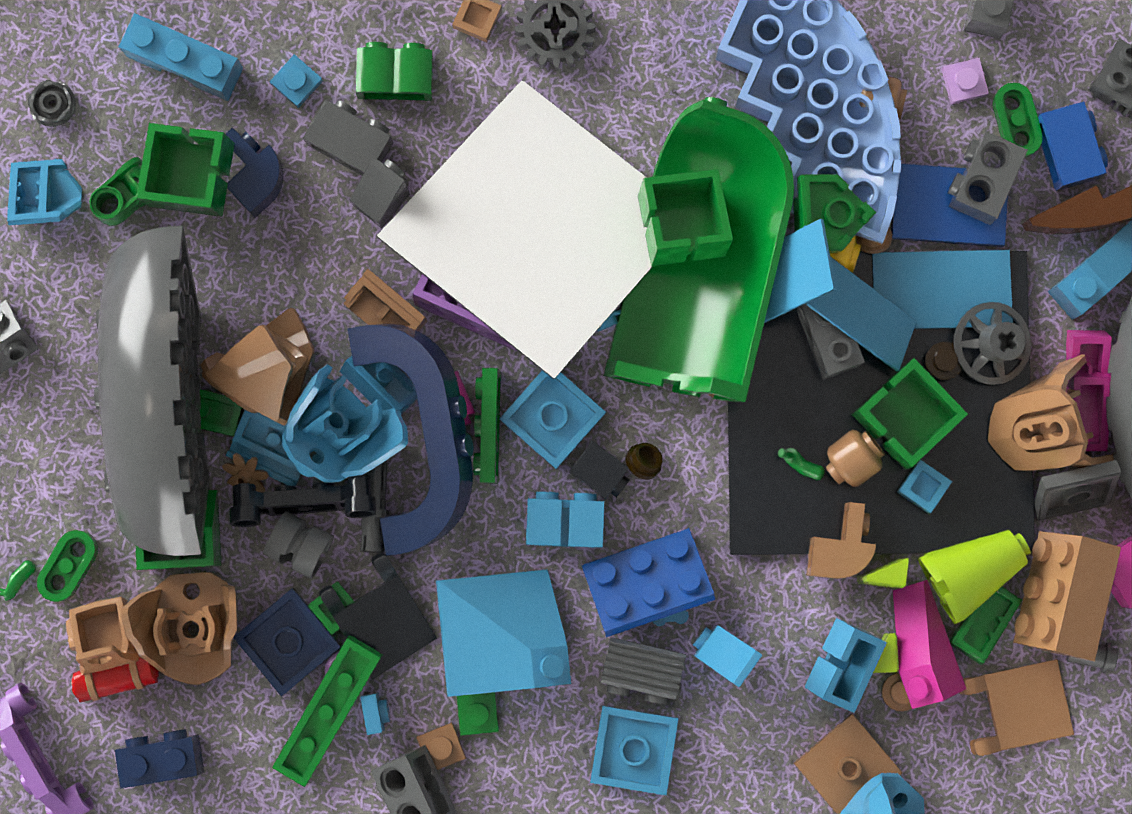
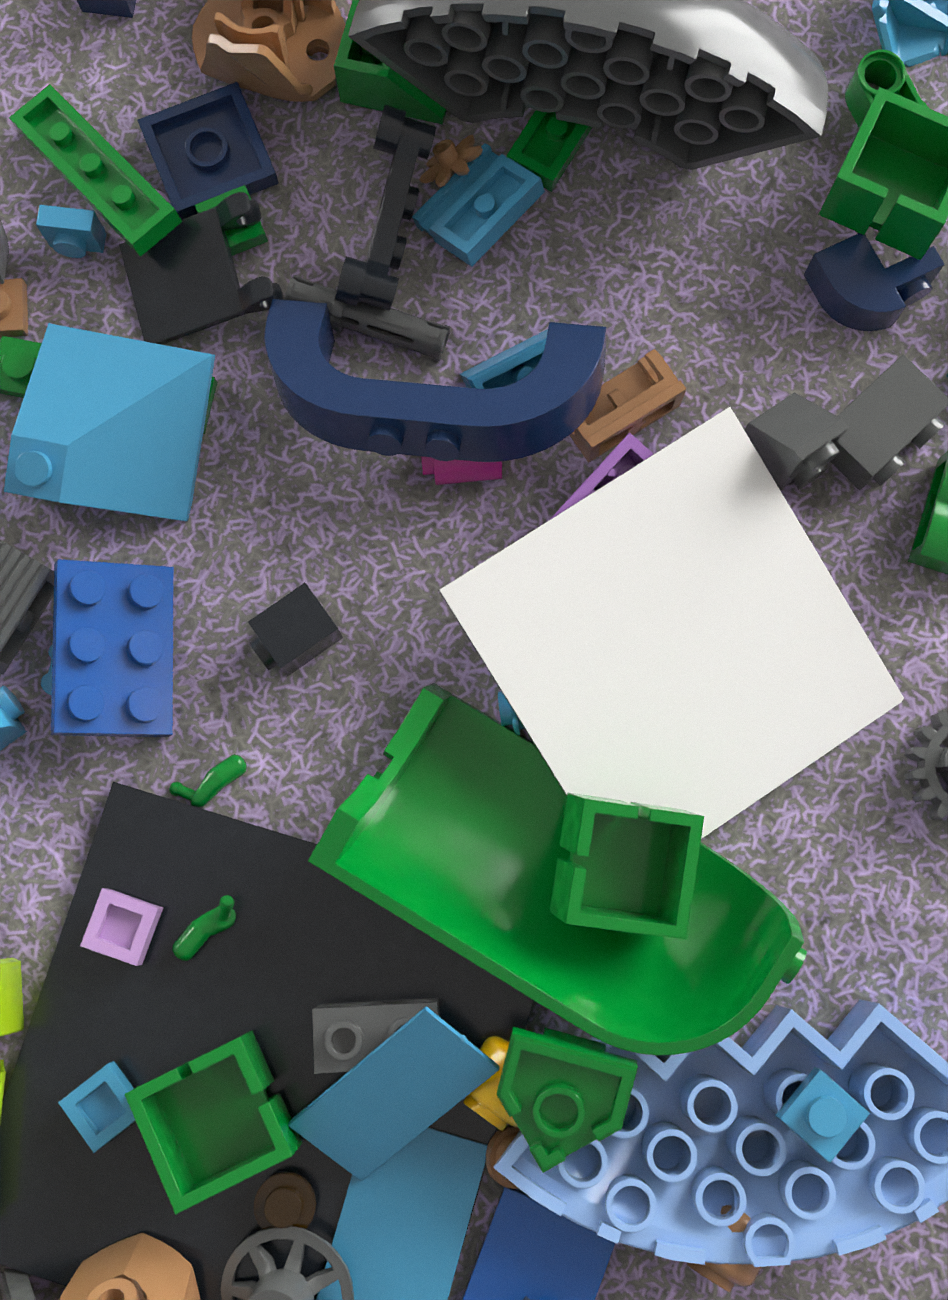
camera: 110 degrees right, 5 degrees down
(264, 367) = (573, 213): medium nougat piece -> none
(298, 544) = (336, 191): dark grey wheel -> none
(340, 431) = (446, 309): dark azure piece -> none
(488, 426) = (409, 495): green plate -> none
(552, 417) = (393, 589): dark azure plate -> none
(565, 521) = (245, 553): dark azure piece -> none
(644, 460) = (289, 699): dark brown plate -> none
(710, 492) = (213, 782): none -> green piece
(792, 64) = (822, 1114): none -> dark azure plate
(802, 270) = (483, 1019): window -> none
(817, 513) = (121, 926): none -> lavender plate
(846, 556) = (42, 944): medium nougat brick -> none
(854, 458) = (181, 1011): medium nougat head -> none

